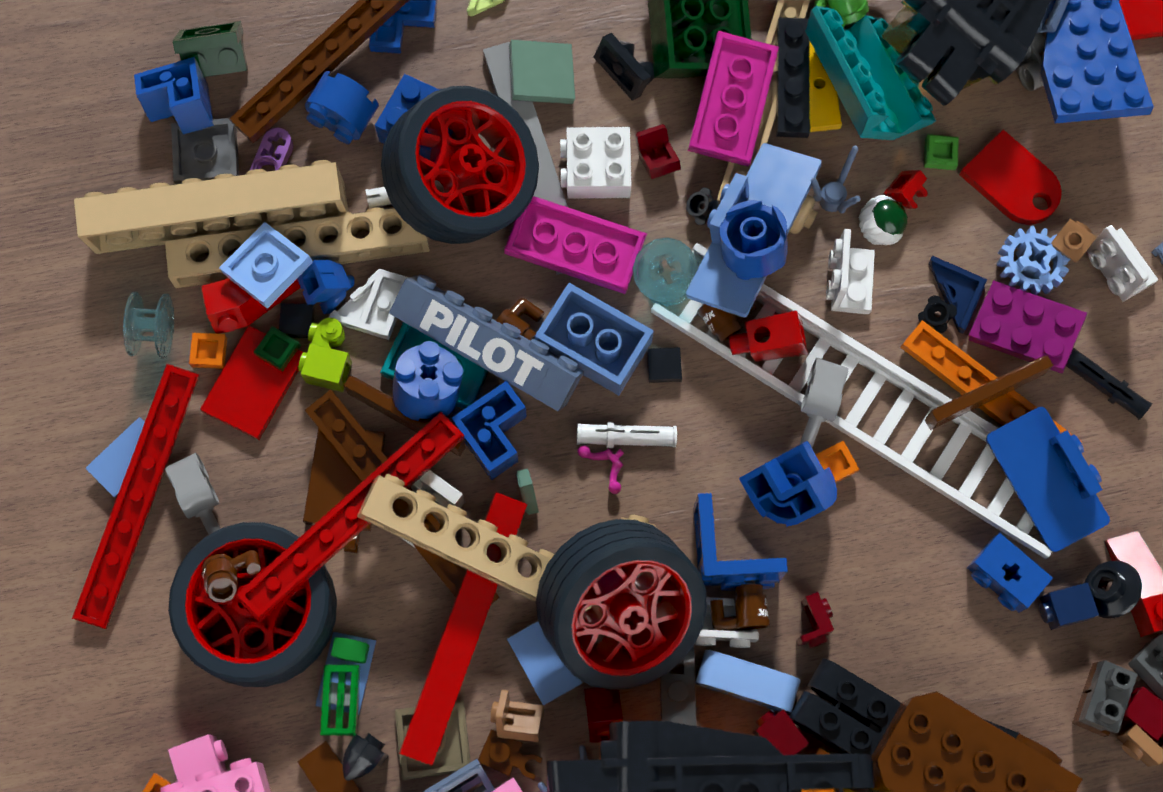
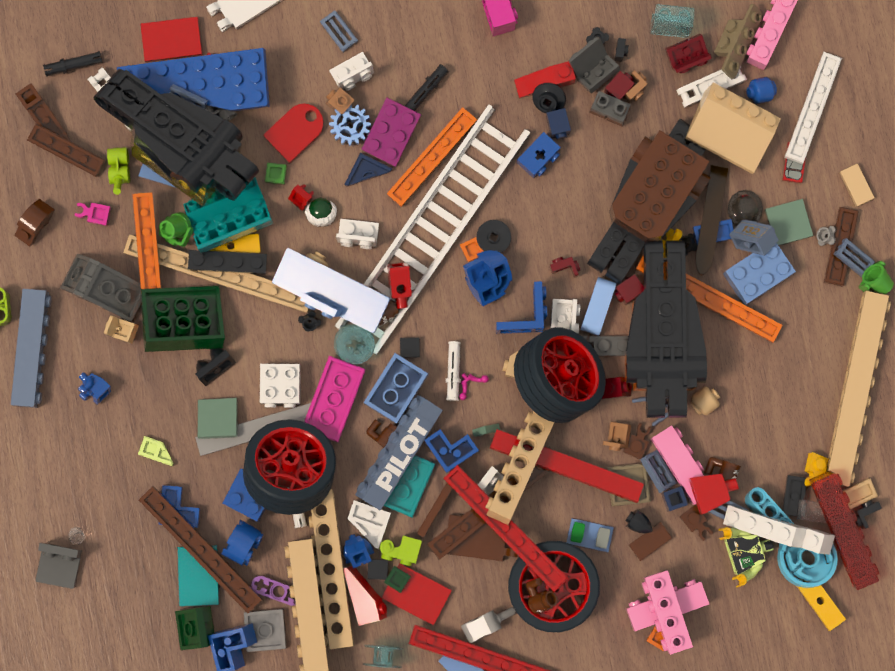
camera: 85 degrees left, 10 degrees up
(208, 350) = (396, 621): orange plate -> none
(266, 265) = (349, 584): light blue plate -> none
(277, 45) = (195, 583): none -> teal tile
(326, 700) = (590, 536): green tile -> none
(426, 381) = (414, 484): blue brick -> none
(541, 664) = (587, 423): medium blue piece -> none
(657, 152) = (274, 347): dark red bracket -> none
(733, 98) = (242, 299): dark pink tile -> none
(749, 608) = (560, 303): reddish brown piece -> none
(754, 239) = (336, 285): blue brick -> none
(822, 396) = (436, 255): light grey beam -> none
(834, 194) = (303, 240): sand blue plant -> none
(865, 483) = (498, 229): none -> black piece
(936, 304) = (387, 183): black plate -> none
(988, 392) = (434, 159): reddish brown tile -> none
(1050, 478) = (485, 128): blue bracket -> none

